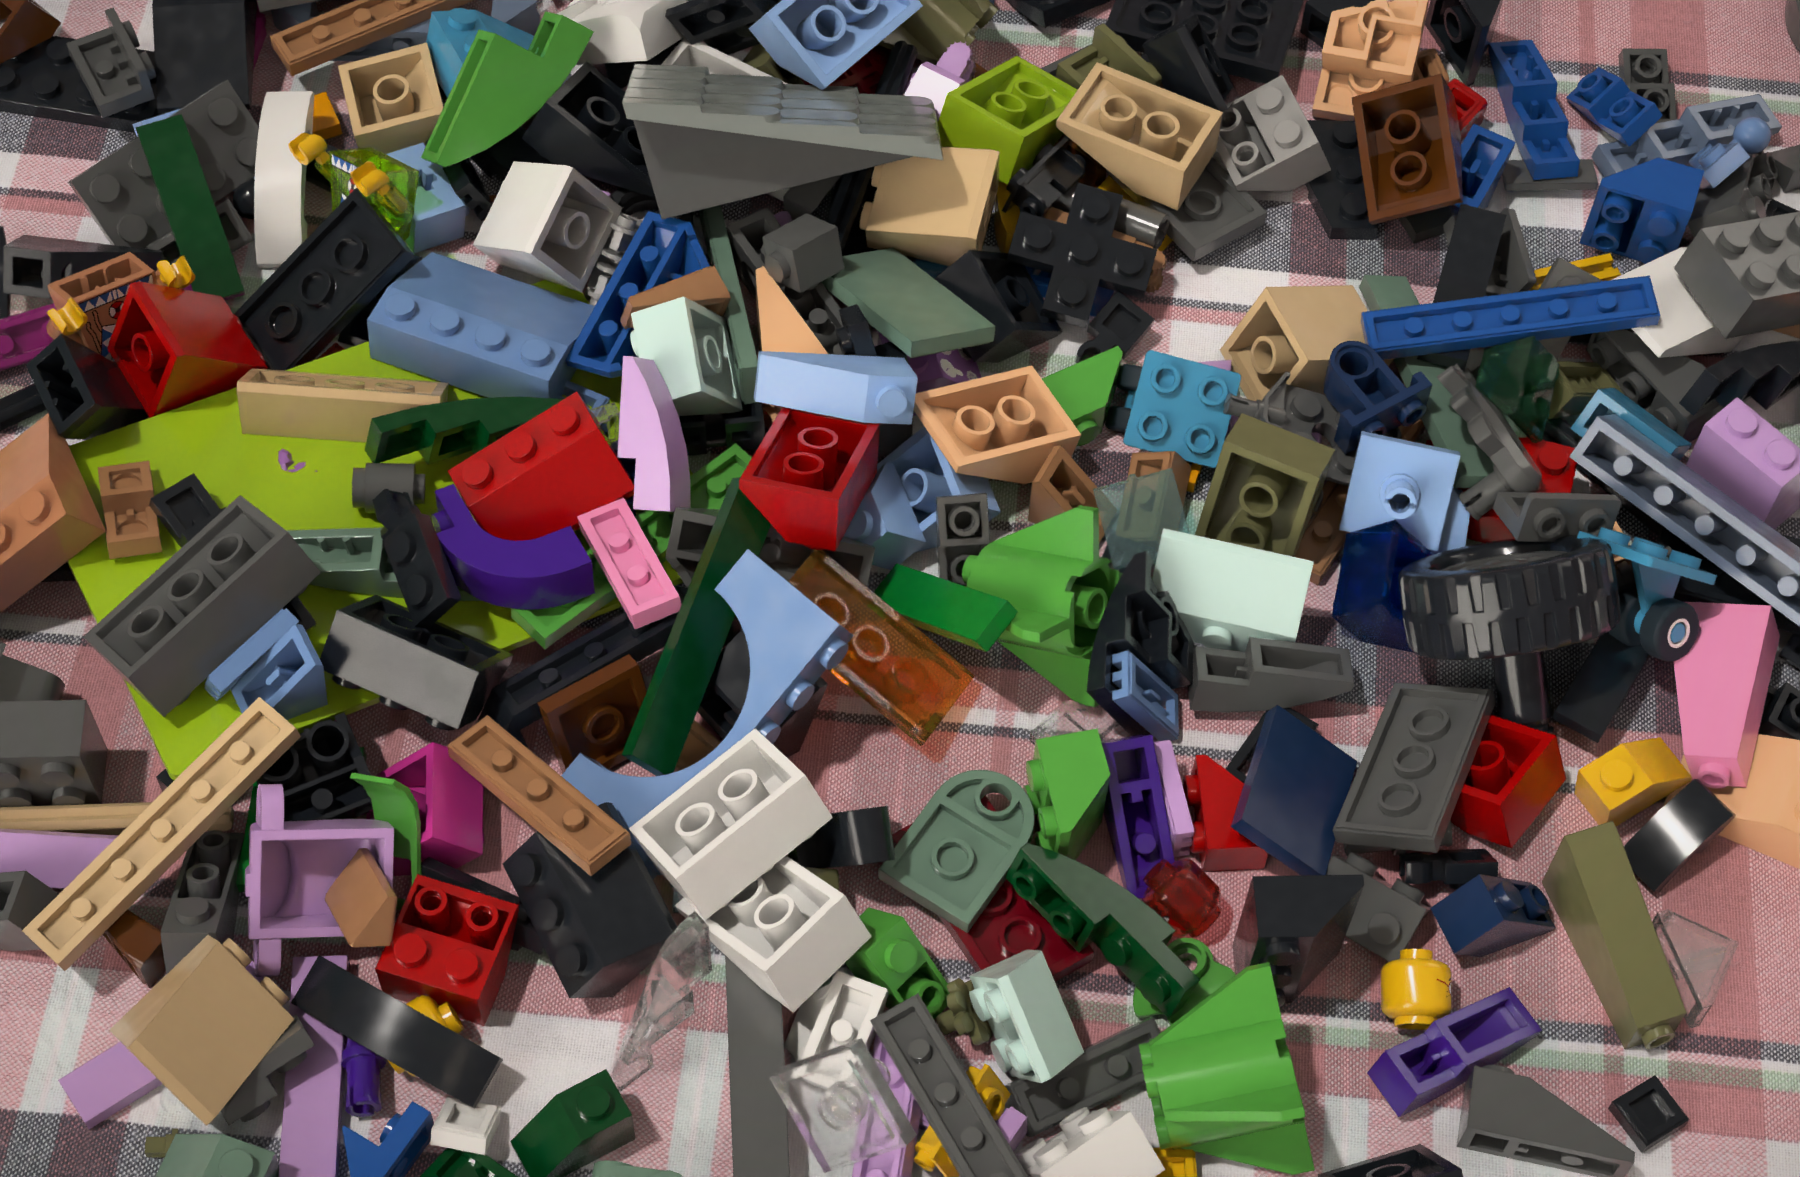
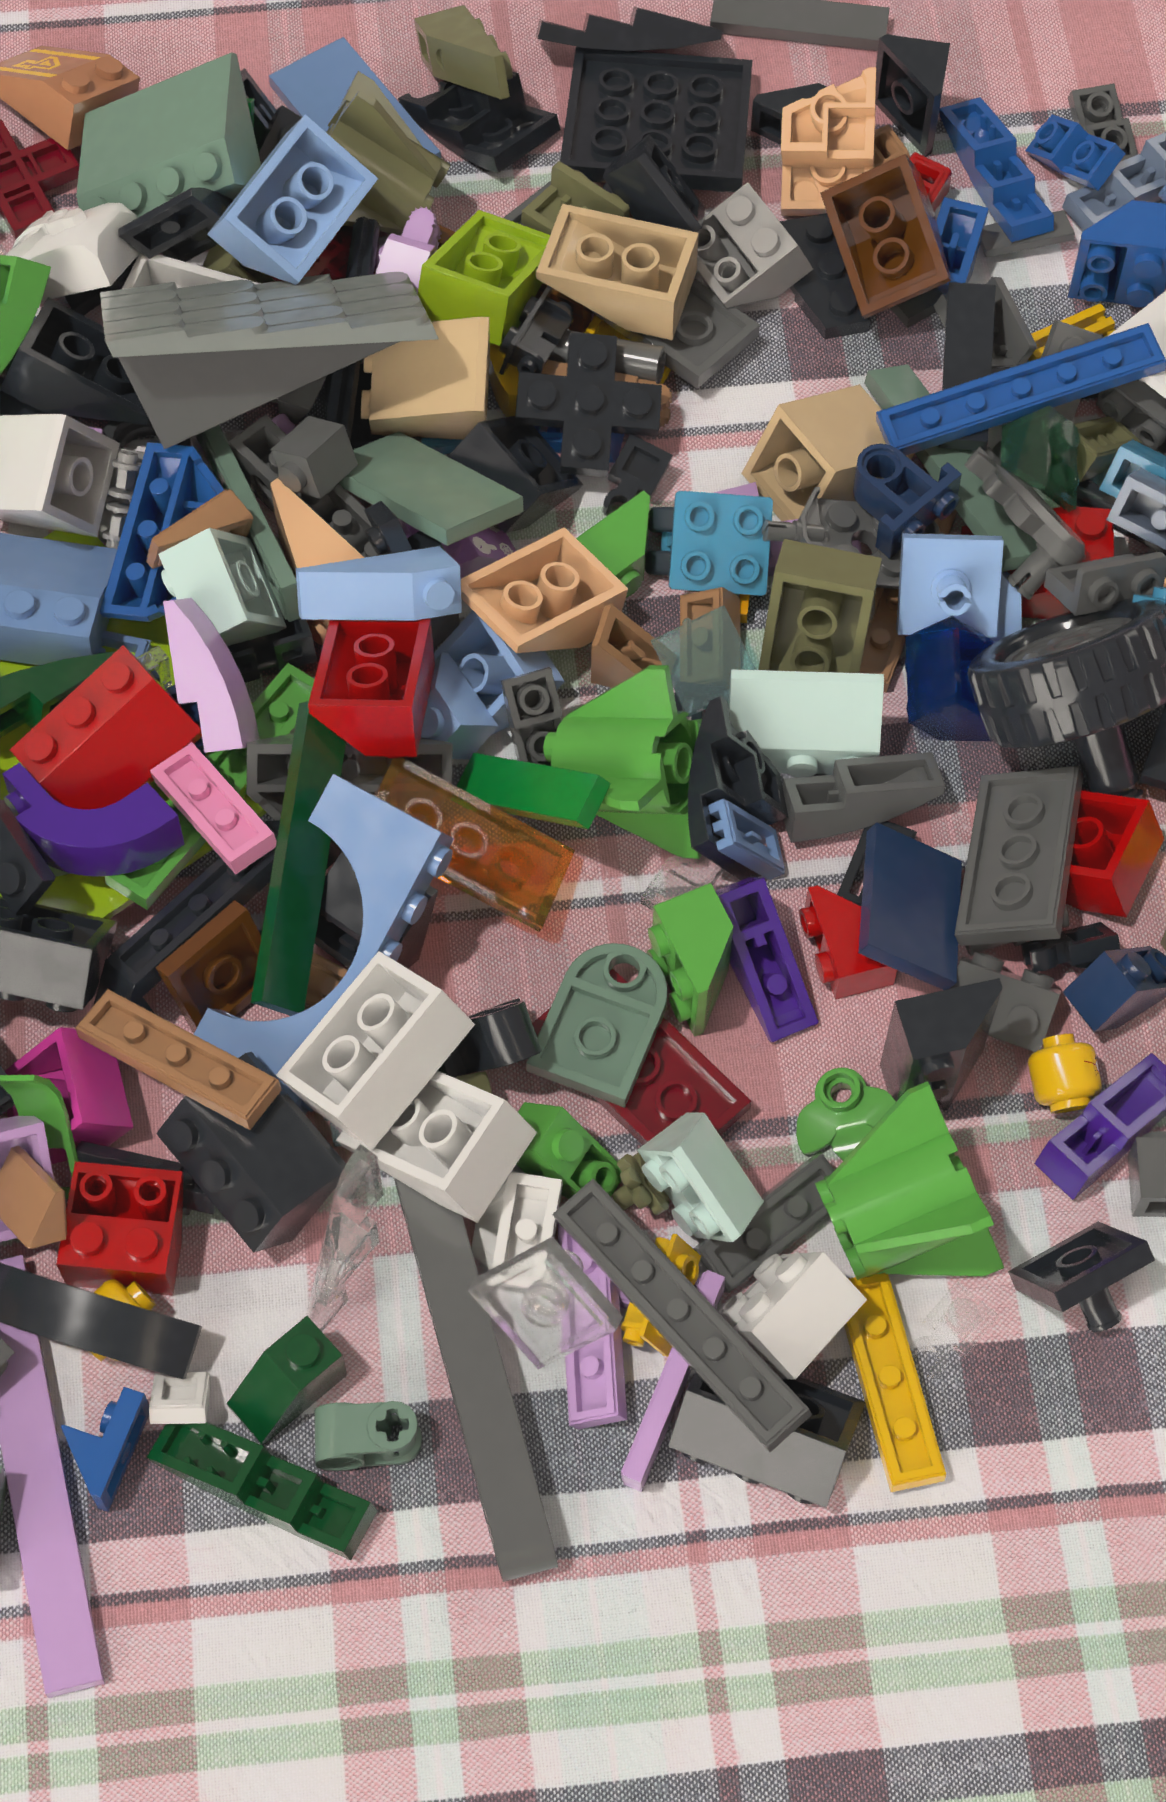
camera: 10 degrees left, 5 degrees up
(363, 1079) = (67, 1374): dark purple pin -> none
(1093, 908) = (744, 1059): dark green slope -> none
(1175, 802) = (802, 947): lavender tile -> none
(1183, 896) = (823, 1030): clear red head -> none

